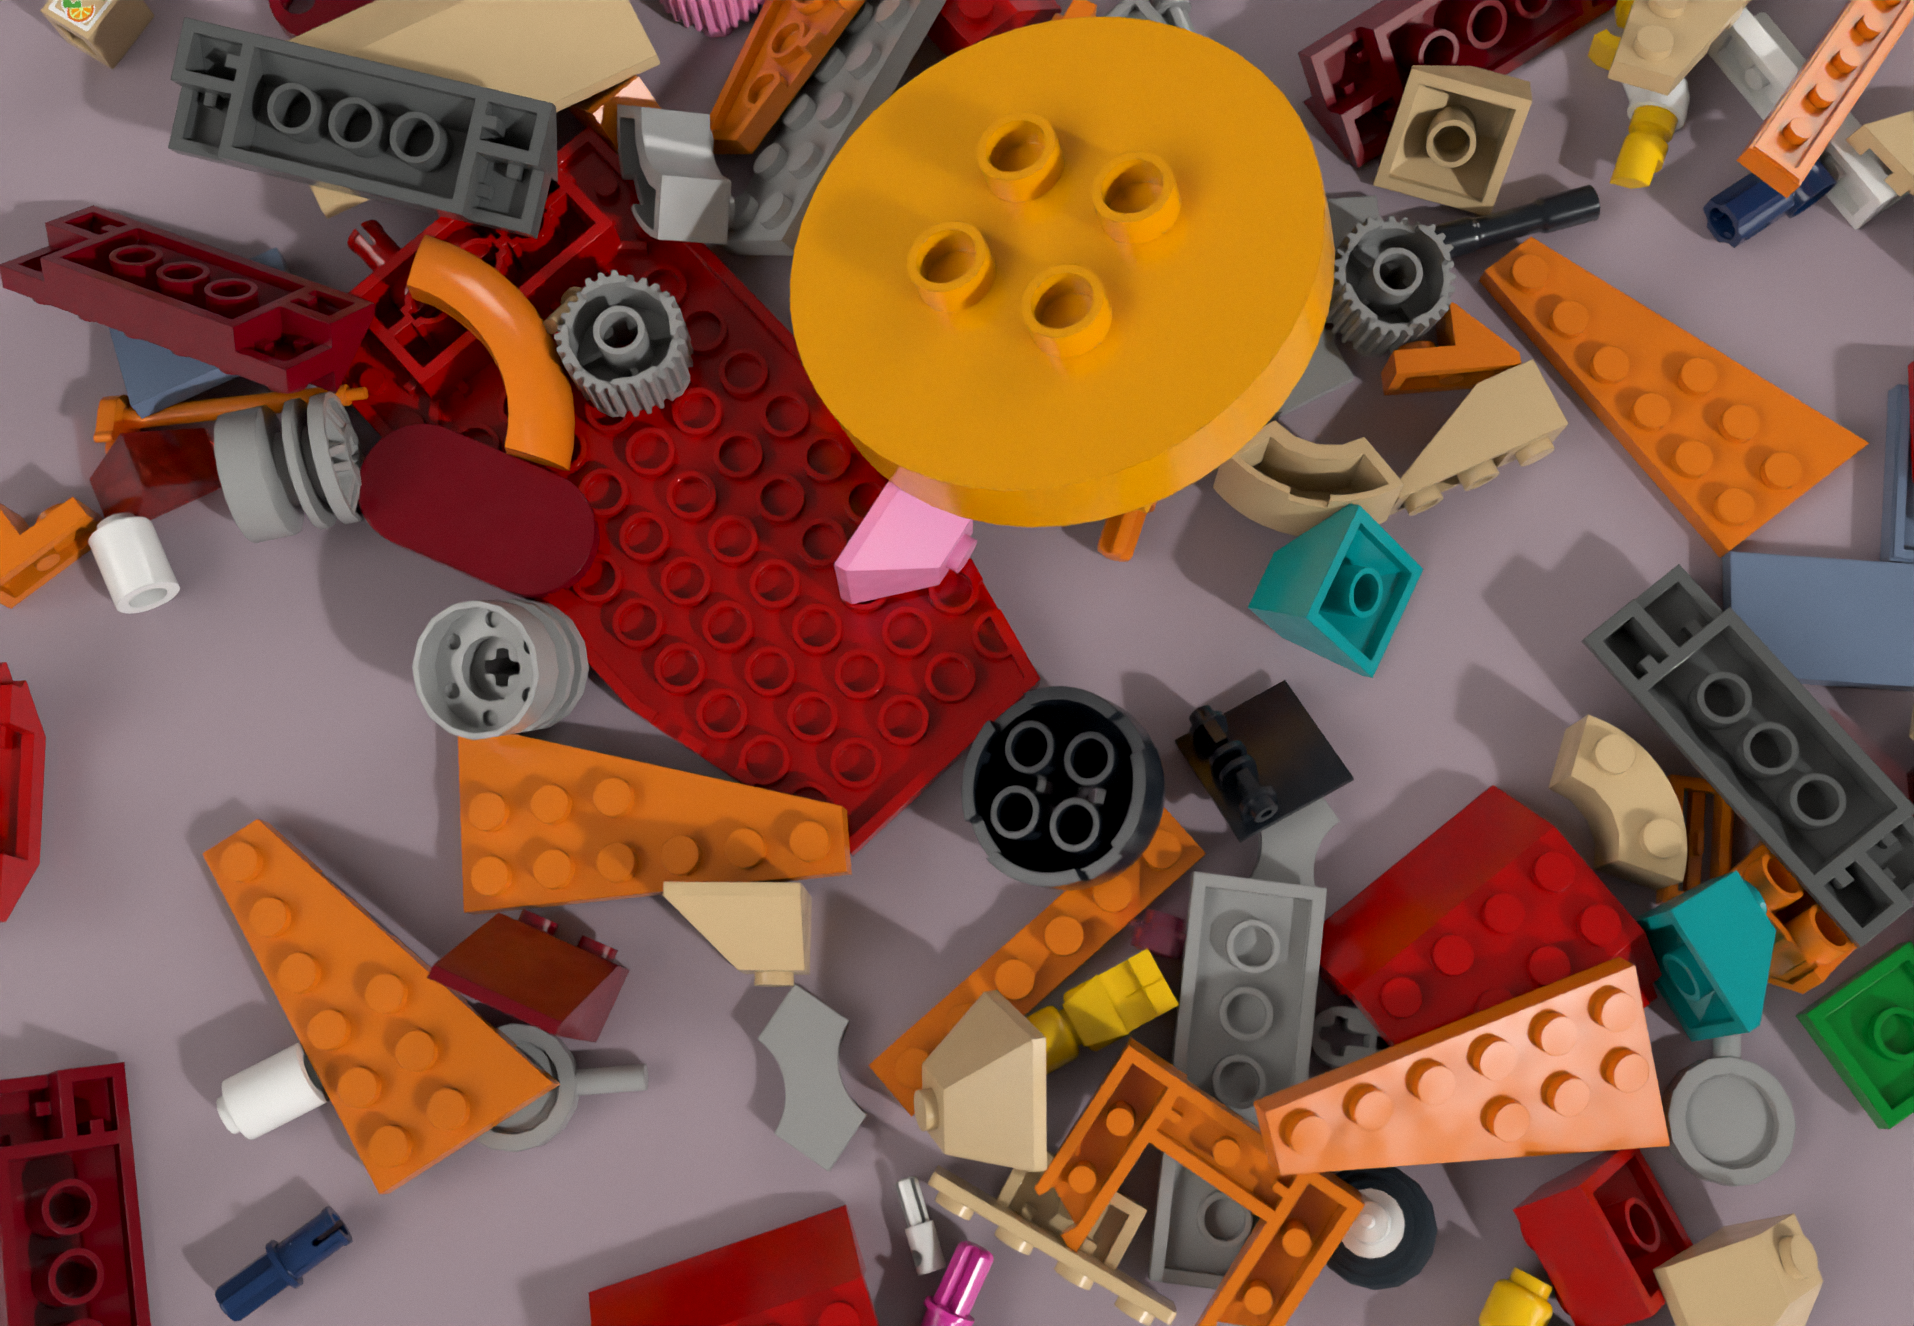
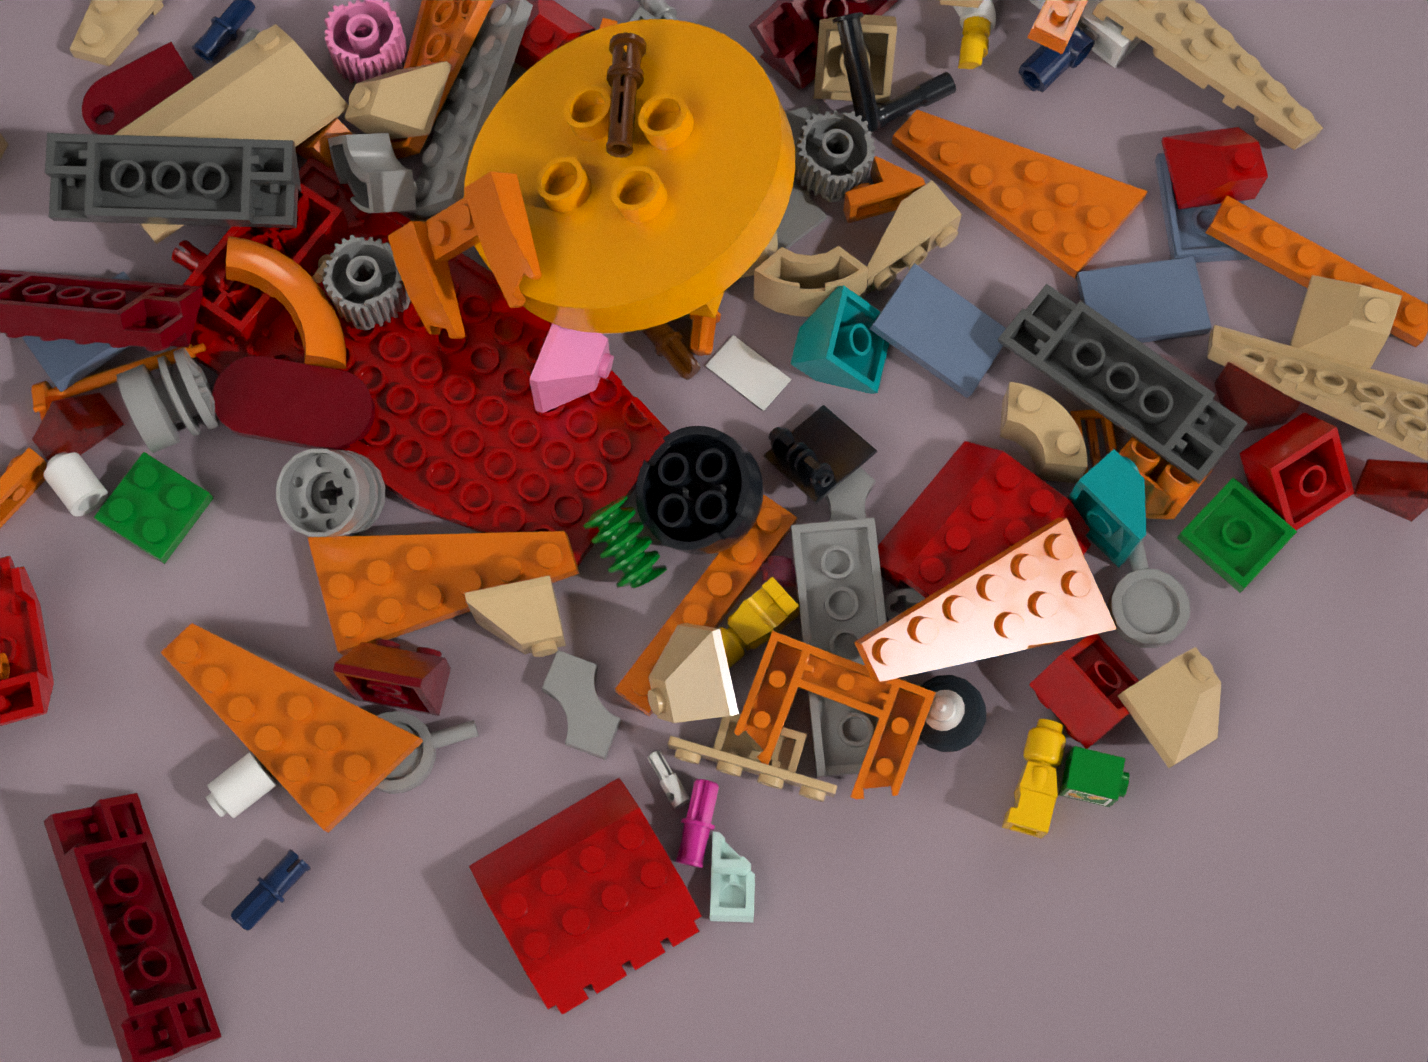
camera: 15 degrees left, 5 degrees down
(242, 624) = (154, 507): none -> green plate
(737, 66) = (399, 101): none -> tan slope
(821, 290) = (487, 214): none -> orange wedge
(932, 845) = (624, 544): none -> green piece
(1077, 556) = (669, 345): none -> reddish brown axle
(1084, 113) = (625, 79): none -> reddish brown pin
(1179, 602) = (748, 372): none -> white sticker
(1455, 157) = (858, 69): none -> black axle
(1493, 602) = (940, 330): none -> sand blue tile

